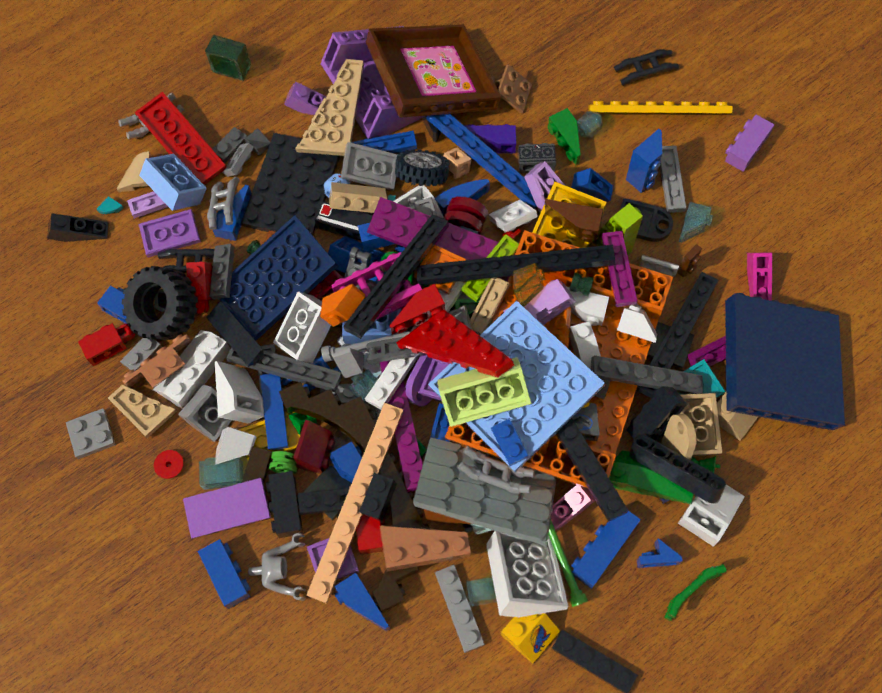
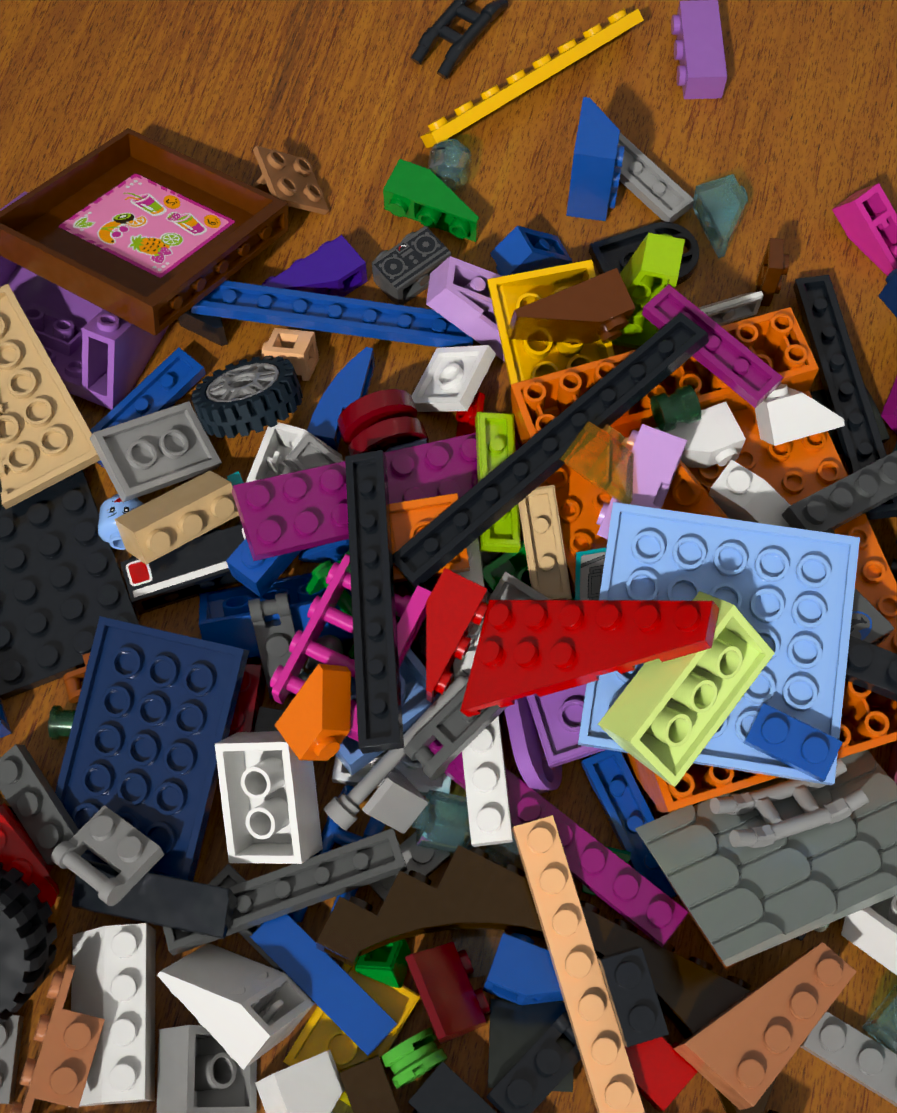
camera: 40 degrees left, 0 degrees up
(236, 303) = (118, 846): none -> light grey plate

